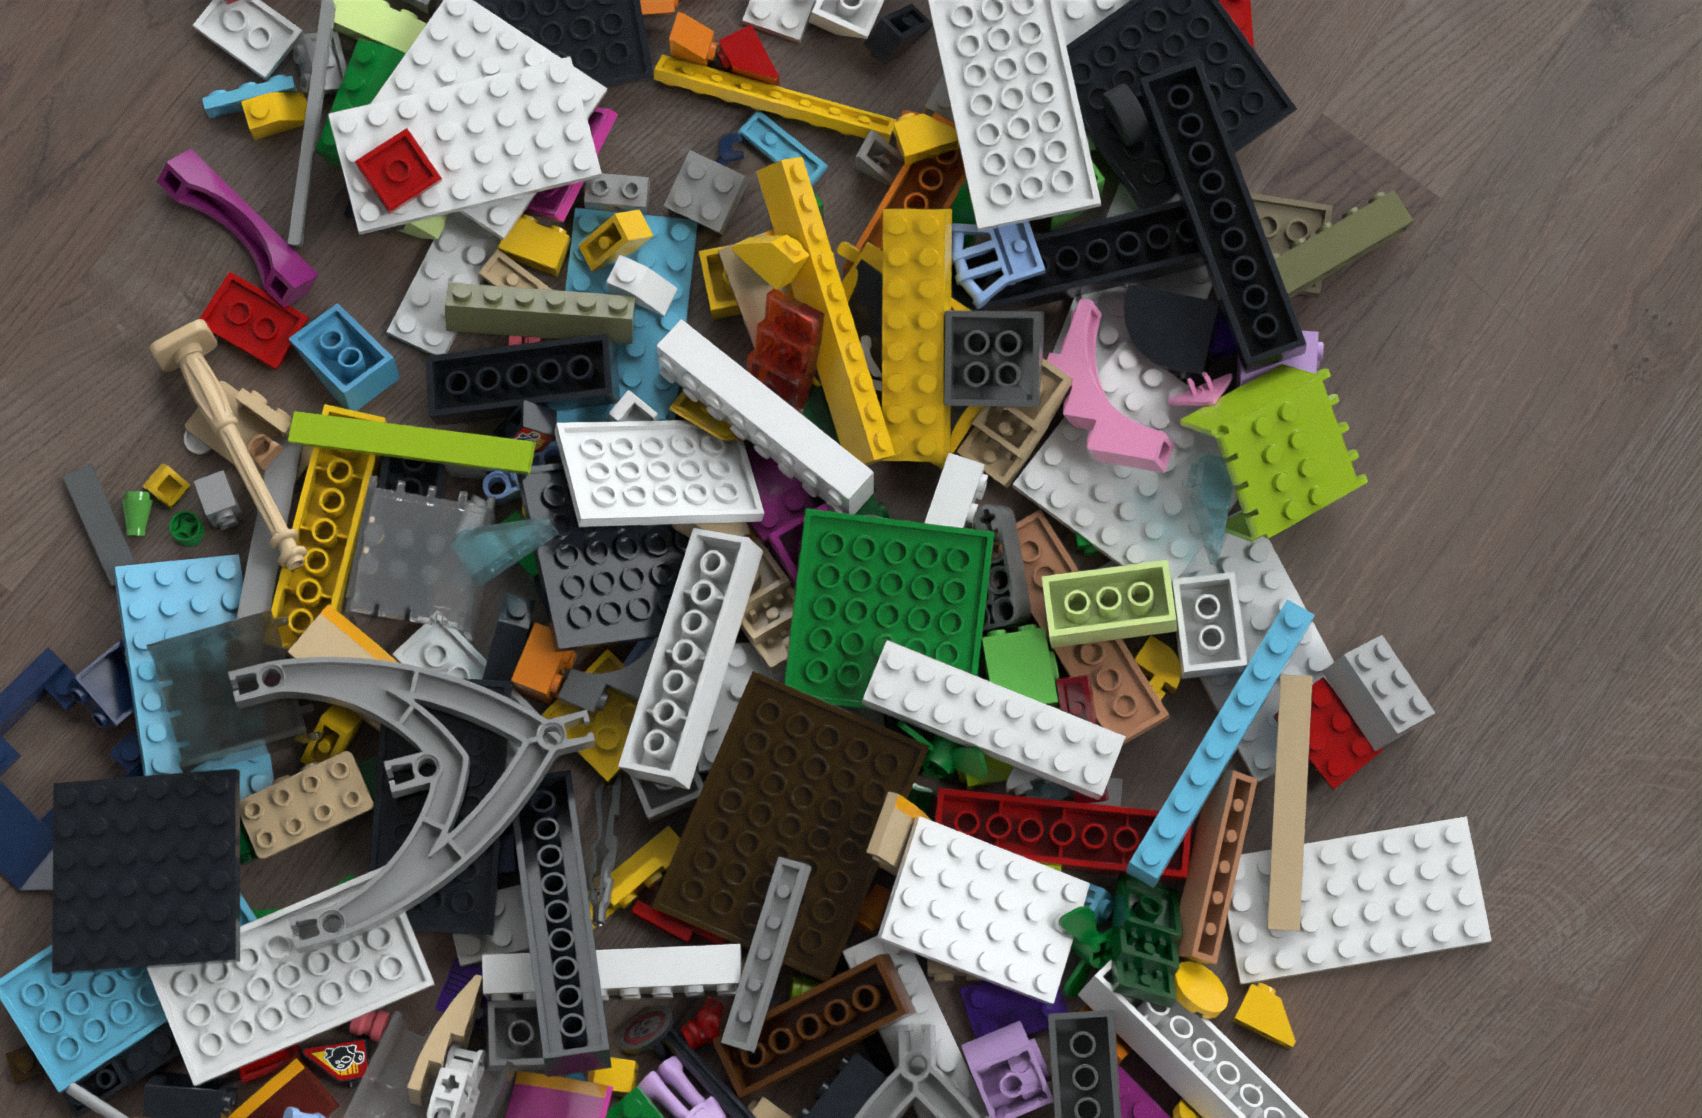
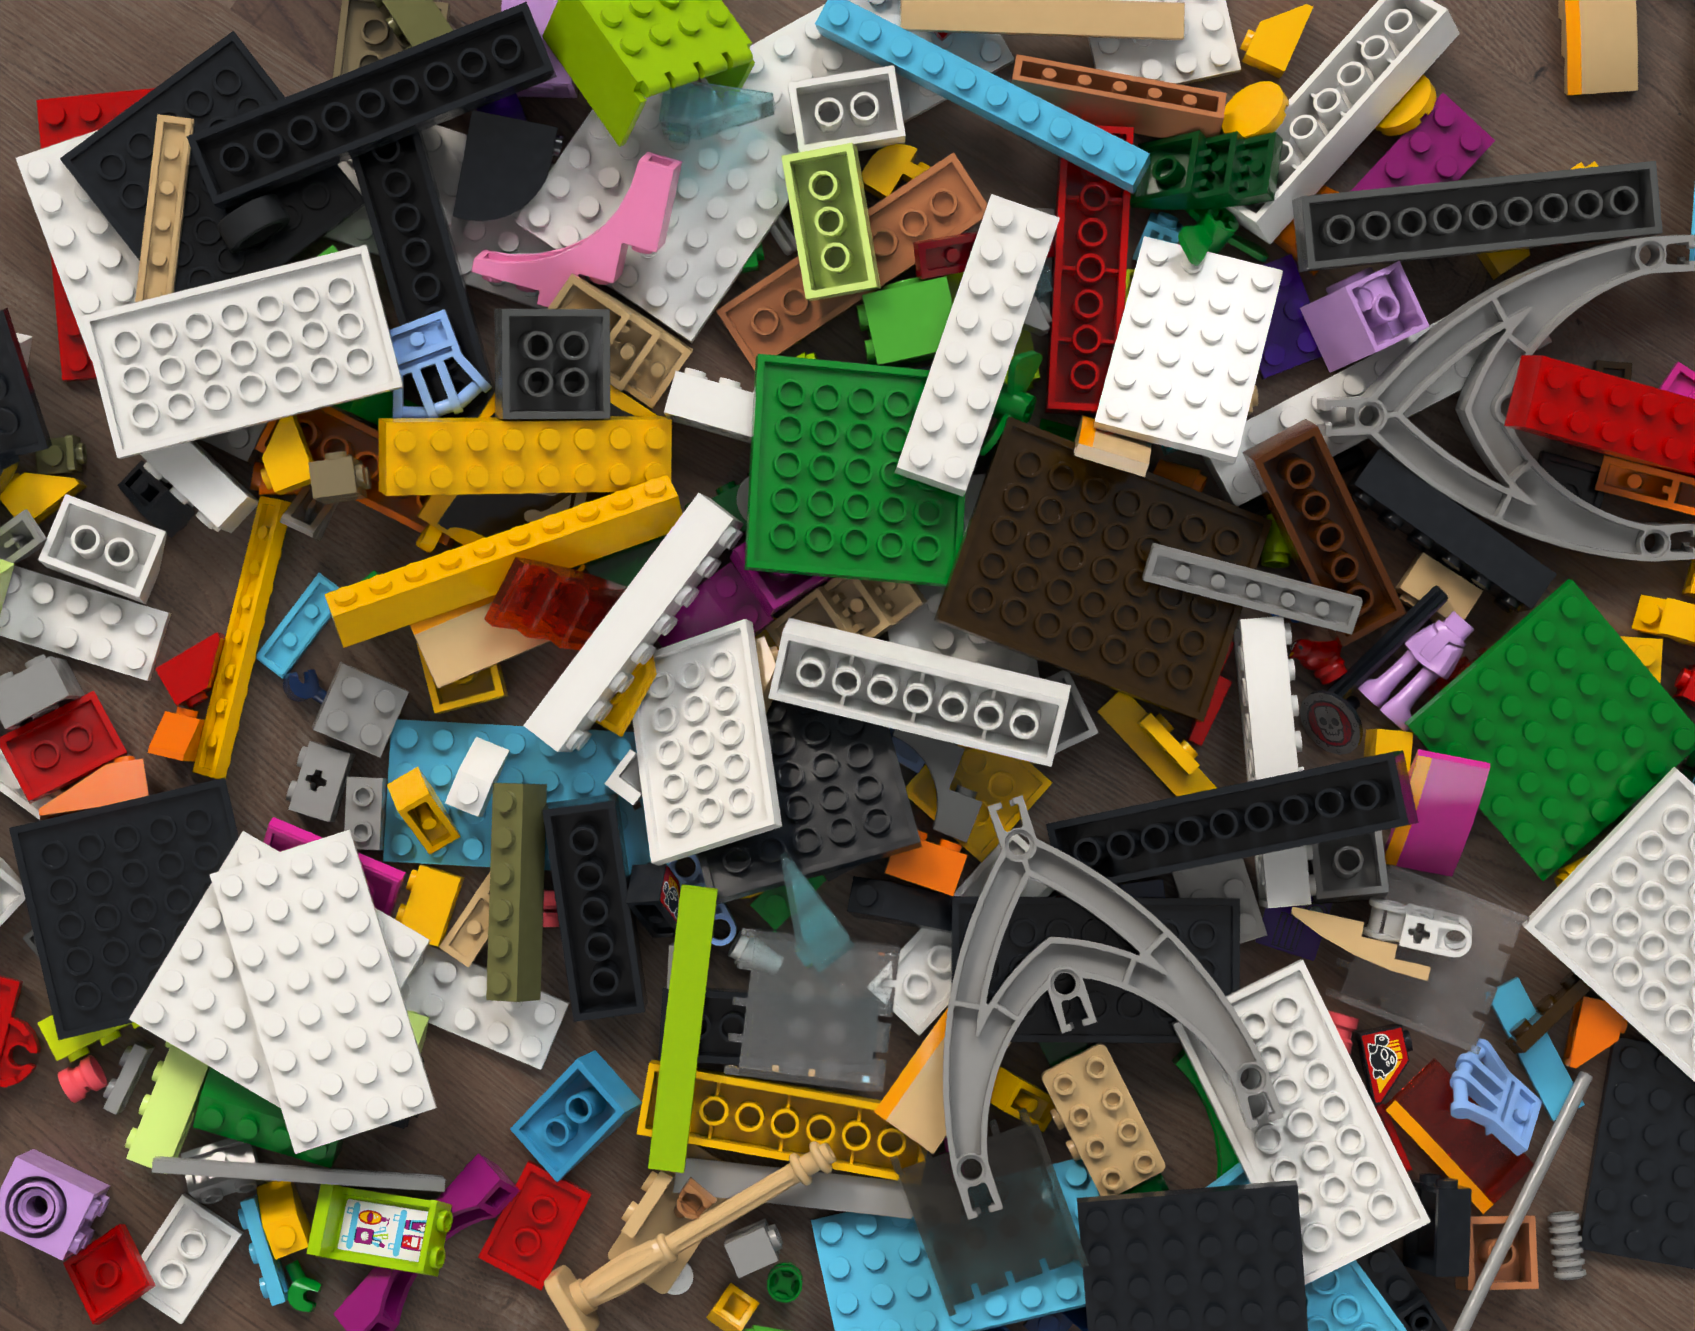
camera: 95 degrees left, 10 degrees up
(213, 122) = (301, 1285): none -> green piece
(259, 188) = (380, 1229): none -> panel
(398, 171) = (361, 1066): red tile -> none
(604, 848) = (1131, 780): dark grey sword -> none
(636, 145) = (326, 799): none -> light grey brick
(773, 257) = (447, 623): yellow slope -> none
(903, 176) = (339, 478): none -> dark tan brick
(906, 71) = (202, 484): none -> white brick
(1009, 563) = (786, 340): dark grey beam -> none
(1140, 43) = (165, 207): none -> tan tile
(1202, 395) = (581, 124): bright pink piece -> none

